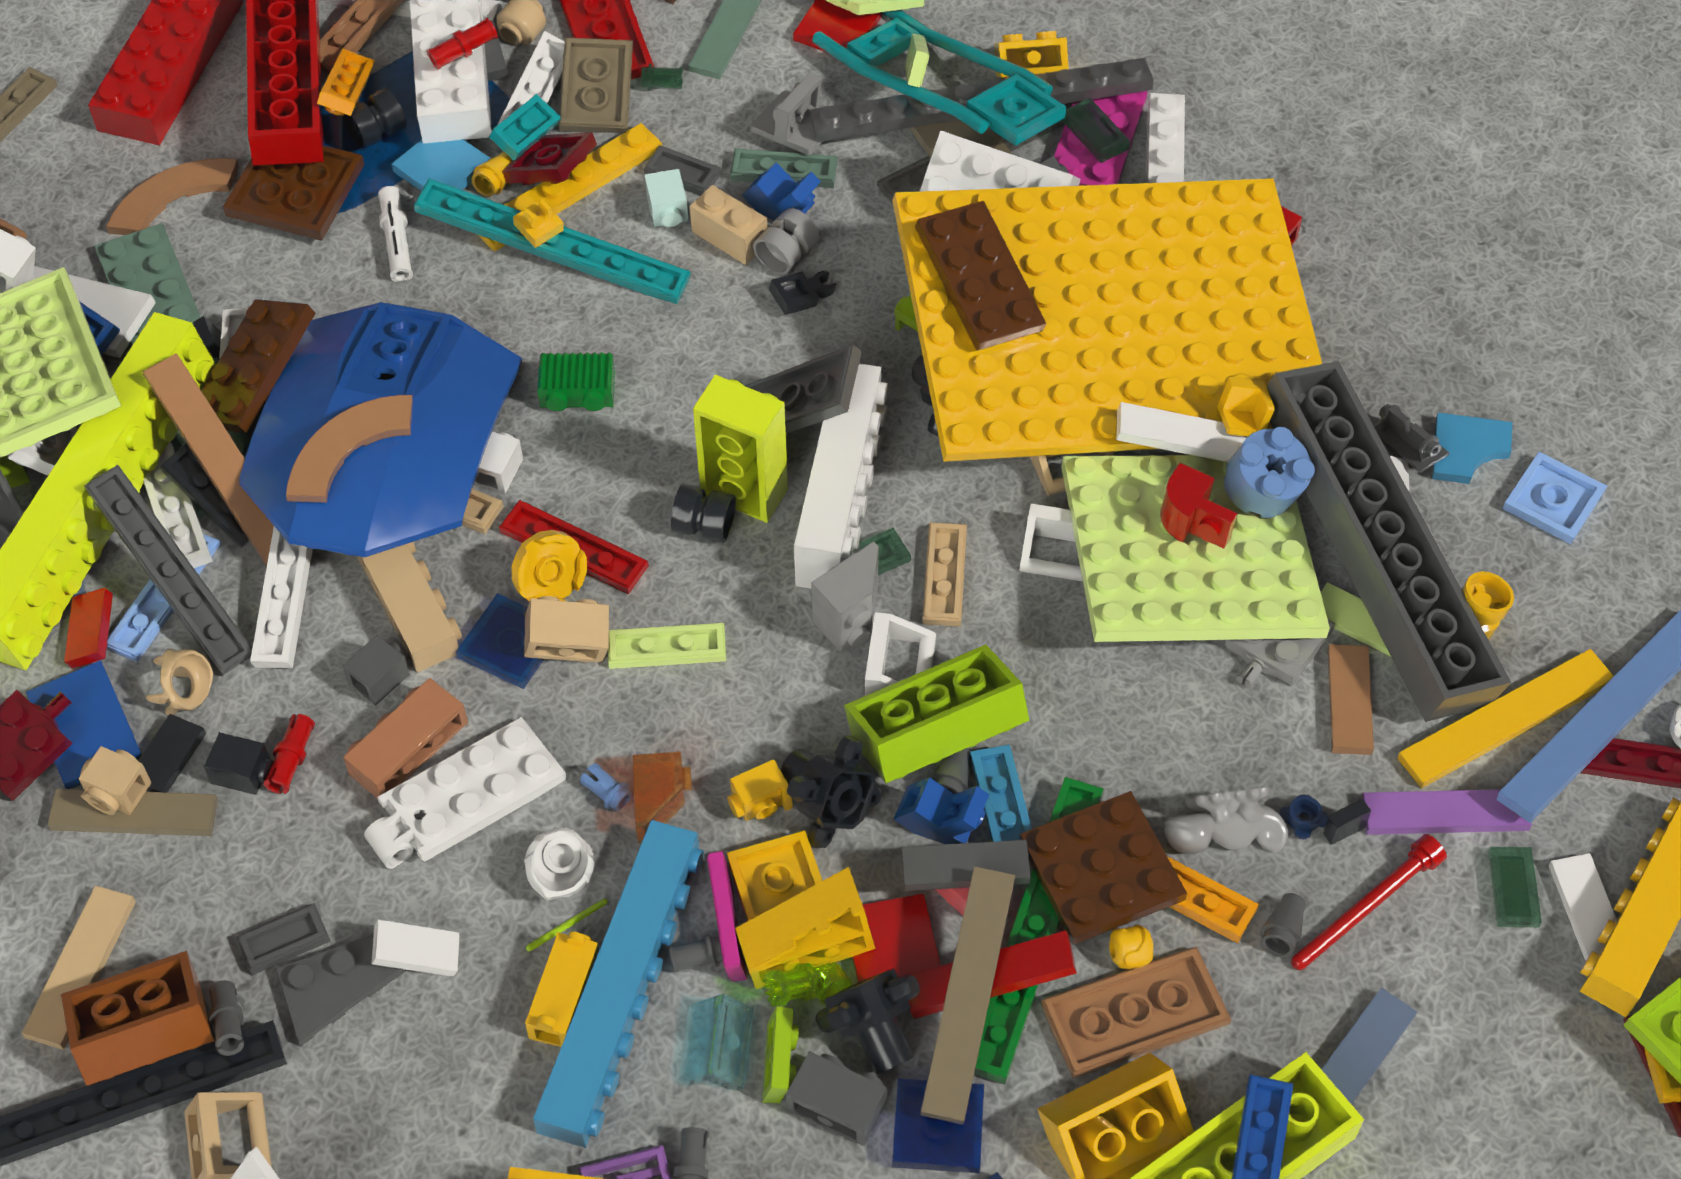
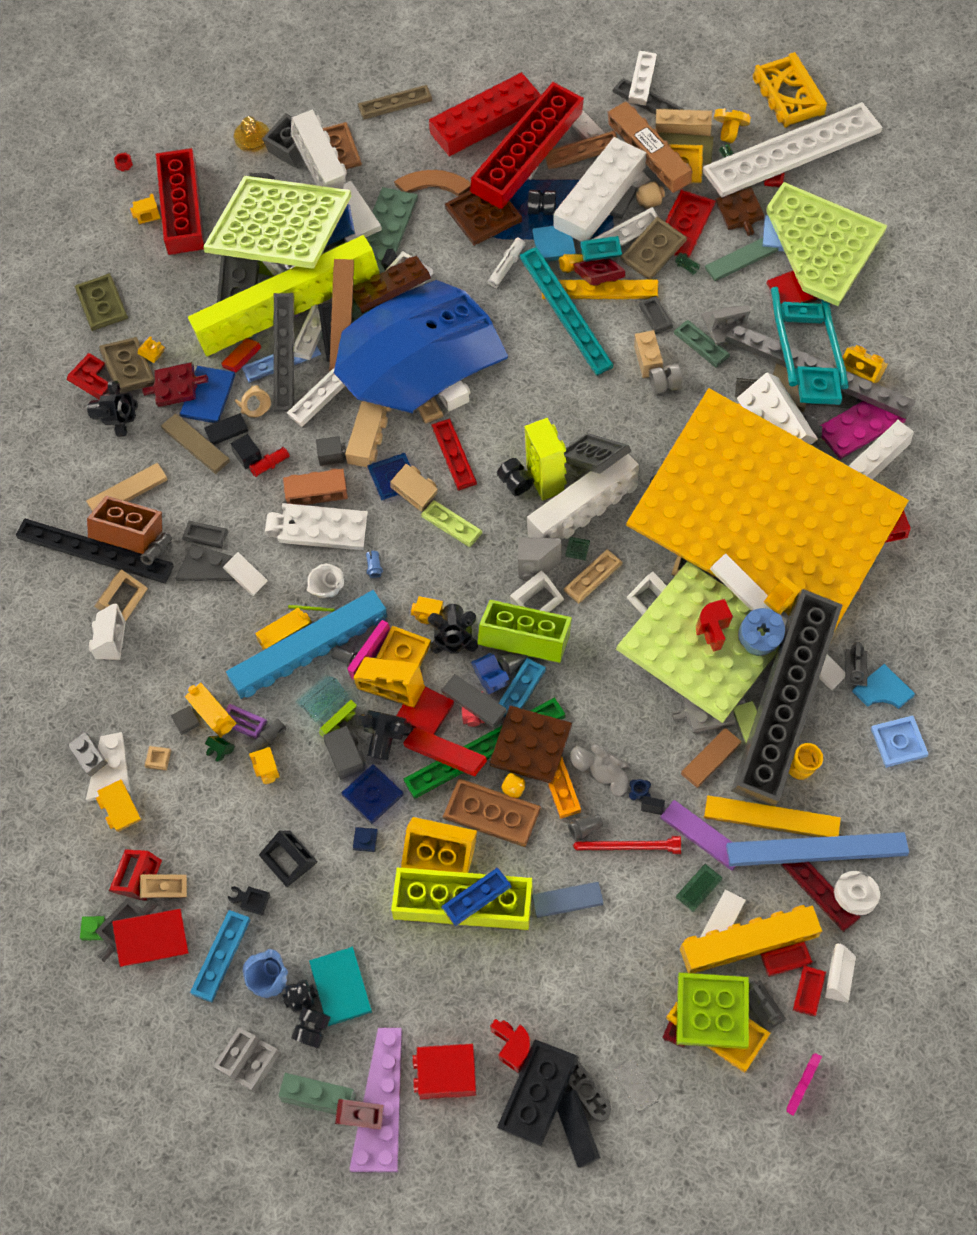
camera: 45 degrees right, 5 degrees up
(113, 781) = (194, 425): tan brick -> none
(339, 437) = (384, 340): medium nougat tile -> none
(345, 83) = (541, 177): light orange plate -> none
(462, 43) = (598, 191): red pin -> none
(538, 223) = (563, 298): yellow tile -> none
(548, 566) = (430, 456): yellow tile -> none
(576, 381) = (519, 382): green brick -> none
(658, 788) = (390, 580): clear orange slope -> none
(666, 198) = (633, 322): light aqua brick -> none
(777, 191) = (684, 355): blue brick -> none
(798, 293) = (649, 406): black plate -> none
(805, 983) = (372, 699): clear neon green connector -> none
(916, 60) = (802, 330): yellowish green tile -> none
(968, 996) = (425, 751): dark tan tile -> none
(980, 275) = (711, 451): reddish brown plate -> none
(1096, 130) = (857, 420): clear green tile -> none

